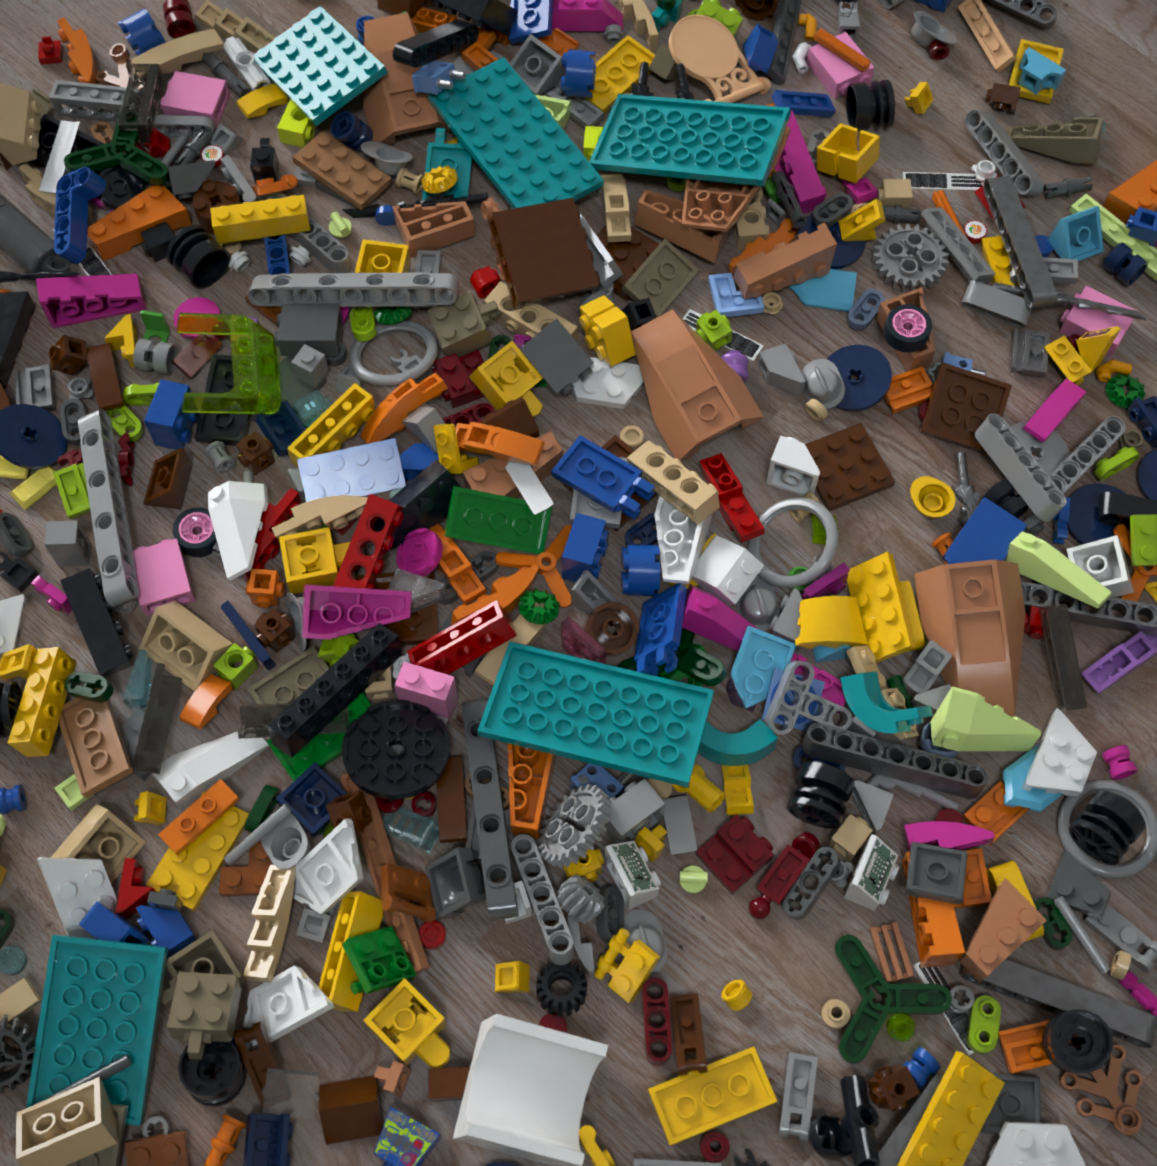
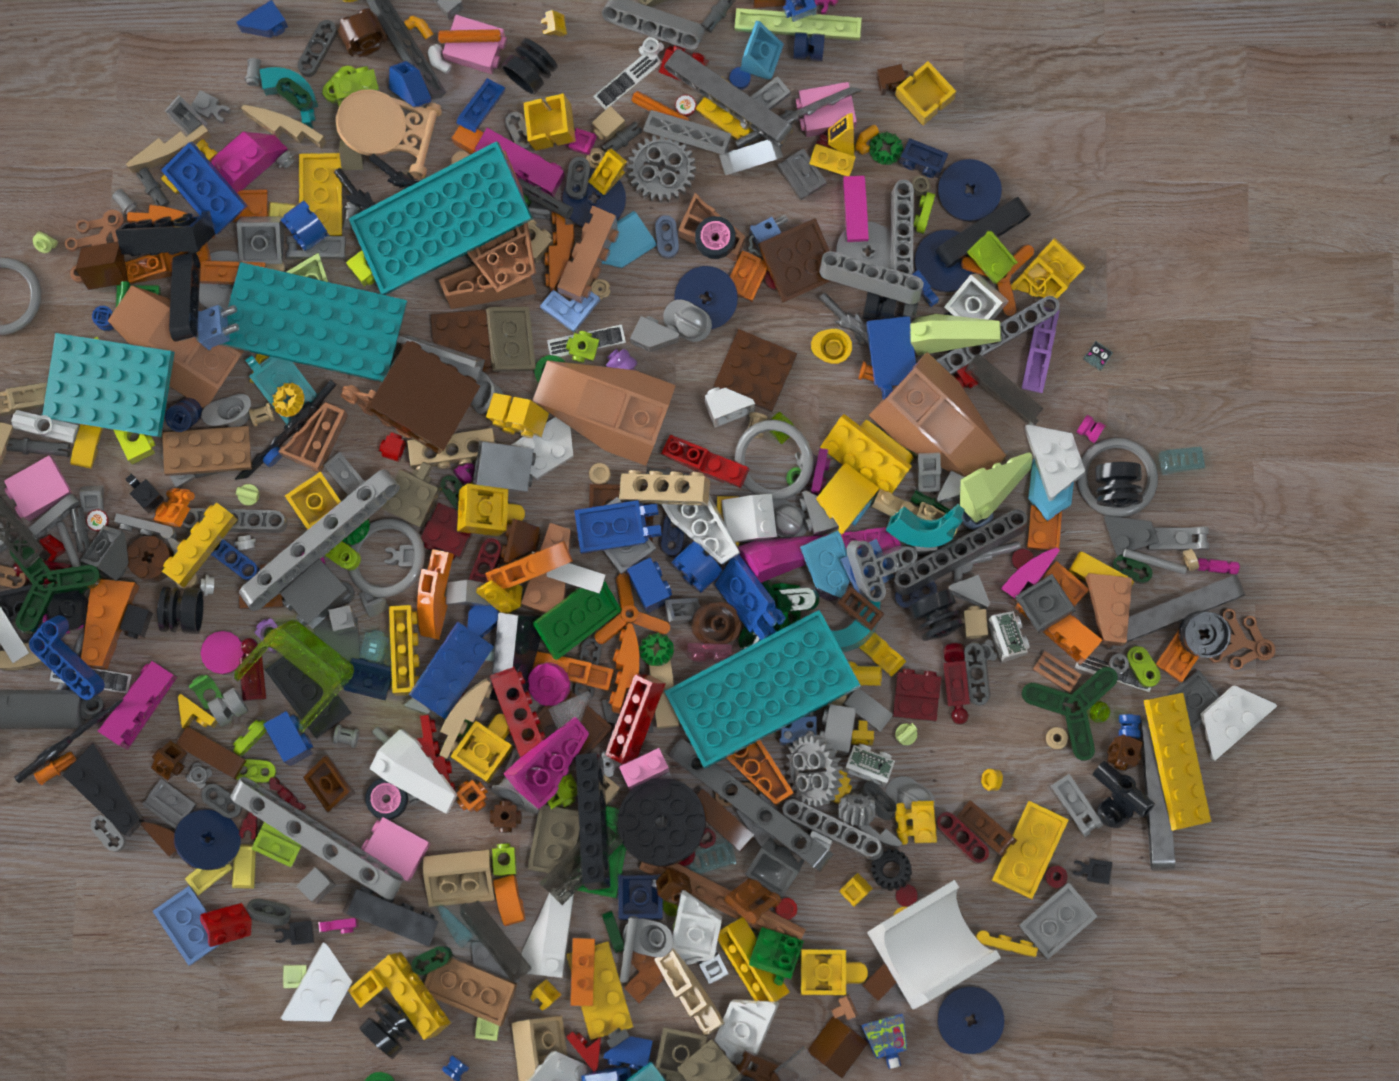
camera: 40 degrees left, 15 degrees up
(248, 636) = (491, 835): dark blue tile -> none
(255, 452) = (373, 718): reddish brown brick -> none
(616, 208) = (430, 310): tan slope -> none
(639, 313) = (524, 382): black brick -> none
(757, 705) = (851, 592): none -> reddish brown slope
(816, 410) = (702, 346): tan tile -> none

